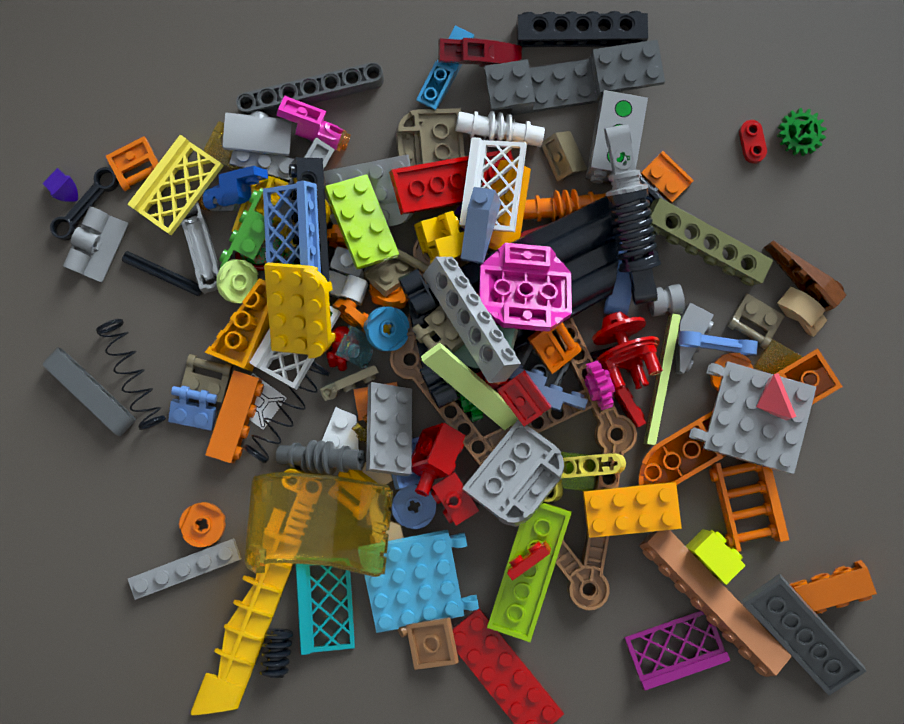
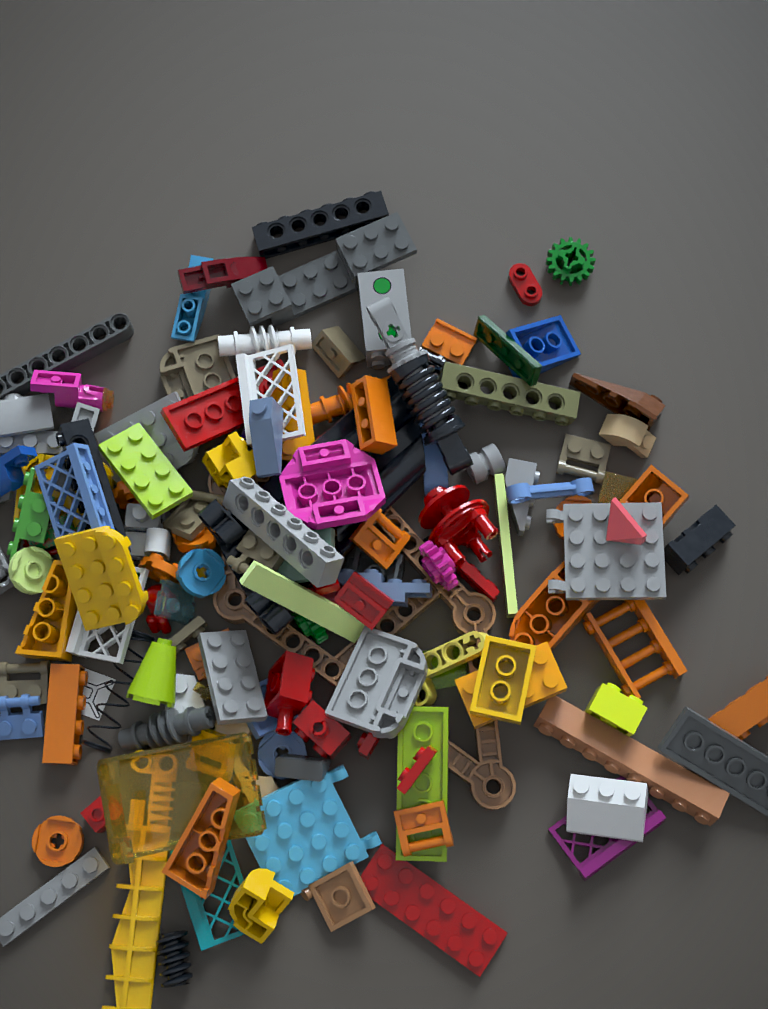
camera: 10 degrees left, 10 degrees down
(240, 513) = (95, 816): none -> red brick
(322, 411) = (156, 675): none -> lime cone
(325, 570) = (202, 845): none -> orange wedge
(360, 630) = (259, 904): none -> yellow brick
(429, 525) = (301, 767): none -> dark grey slope
(490, 522) = (367, 745): none -> red plate
(519, 602) = (422, 819): none -> orange plate
(581, 230) = (373, 415): none -> orange brick
(628, 508) = (503, 679): none -> yellow brick
(682, 637) = (607, 807): none -> white slope
(719, 202) = (507, 350): none -> dark green tile
(746, 205) = (546, 342): none -> blue slope
(837, 425) = (698, 540): none -> black wedge

